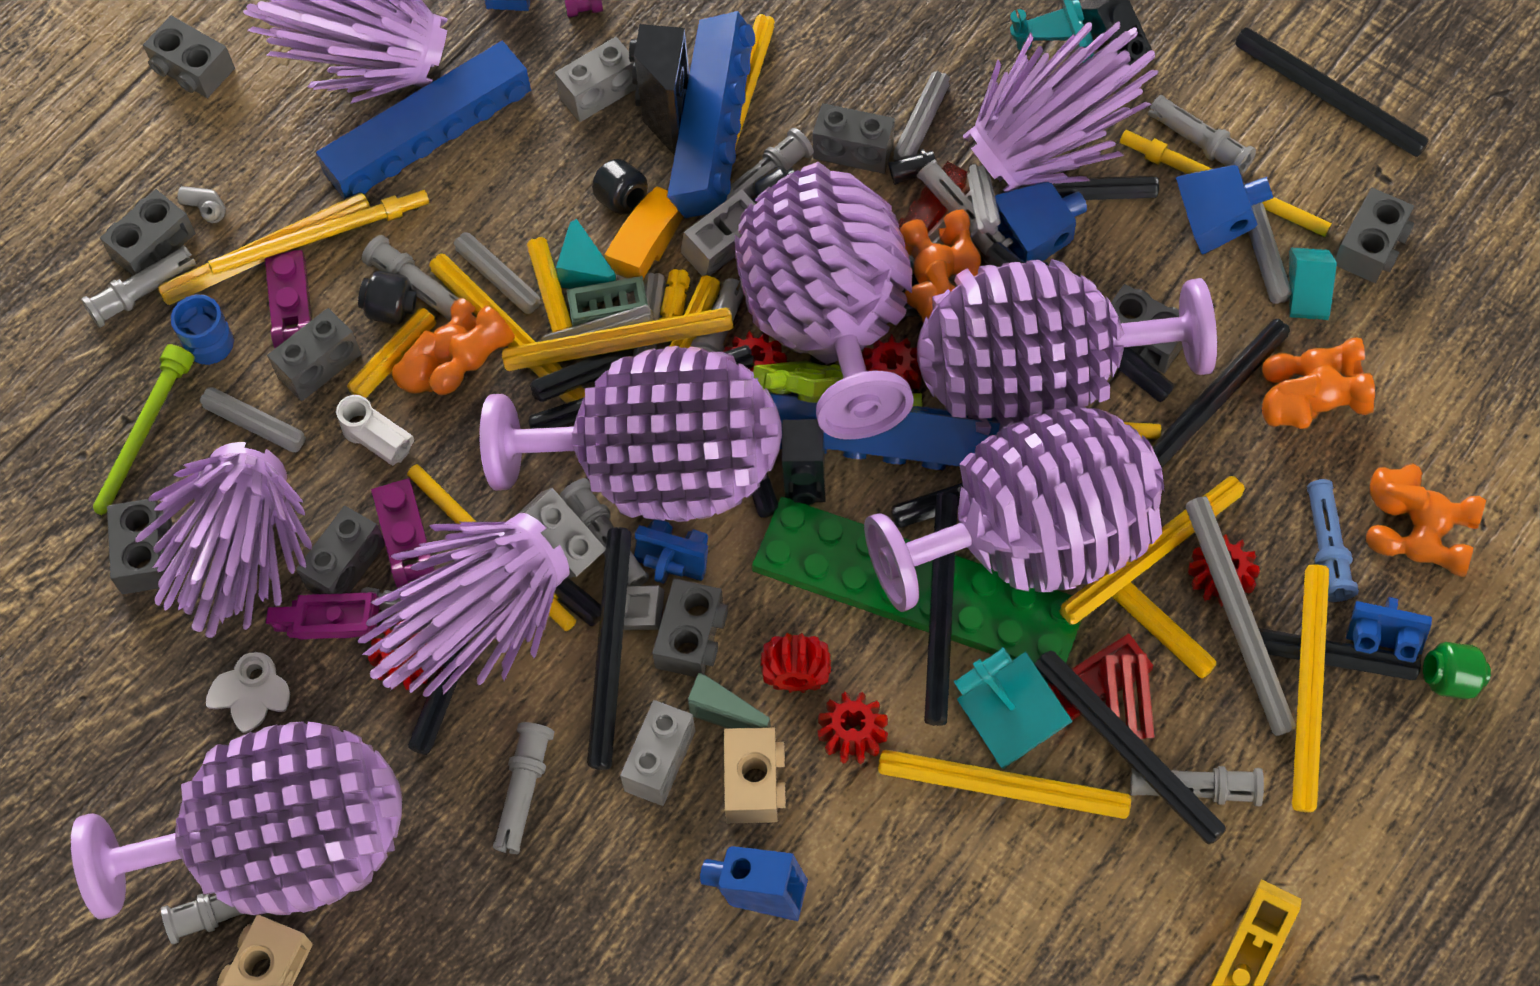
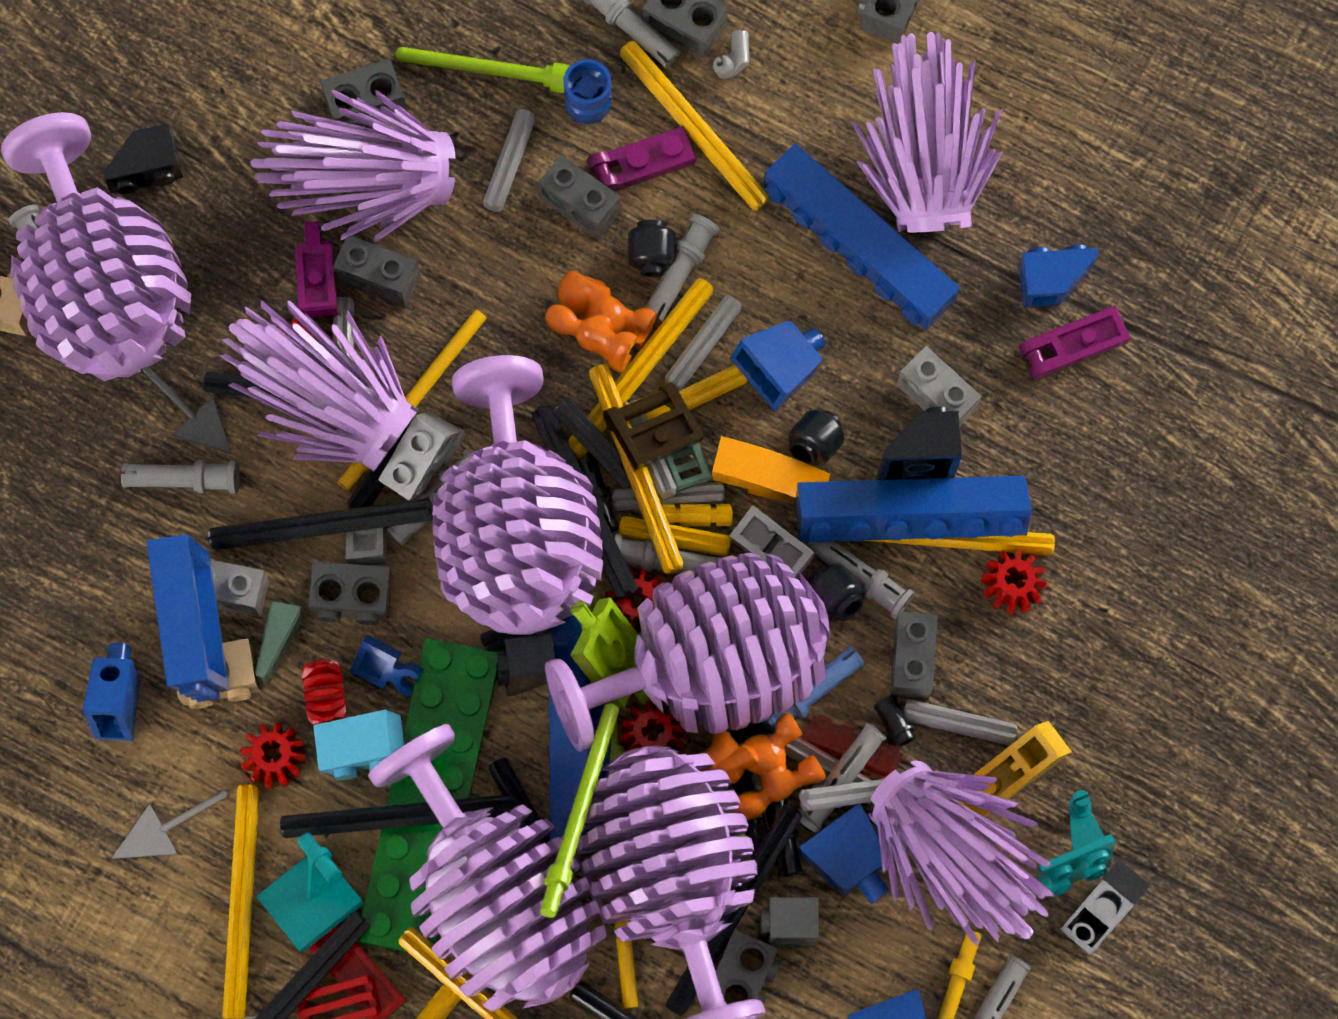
camera: 75 degrees right, 10 degrees up
(143, 775) = (144, 160): none -> black slope
(249, 697) = (238, 226): white plate -> none
(374, 431) = (508, 270): white piece -> none
(390, 208) = (756, 226): yellow bar -> none
(391, 353) = (598, 267): yellow axle -> none
(401, 527) = (416, 319): magenta plate -> none
(465, 762) = (202, 426): none -> dark grey piece
(539, 202) = (779, 361): none -> blue torso
(581, 261) = (725, 417): teal slope -> none
(593, 305) = (659, 435): none -> dark brown plate
(670, 553) = (423, 578): blue hips -> none
(719, 718) = (188, 617): none -> blue window
(772, 607) = (380, 665): none -> blue plate
(797, 51) = (1018, 570): none -> red gear
(858, 635) = (357, 743): none -> medium azure brick
(918, 873) = (150, 836): none -> light grey piece
(968, 65) = (1022, 763): none -> yellow slope
(1052, 410) = (559, 874): none -> lime bar
(1104, 258) = (790, 922): none -> dark grey brick
(1112, 188) = (908, 932): black axle -> none

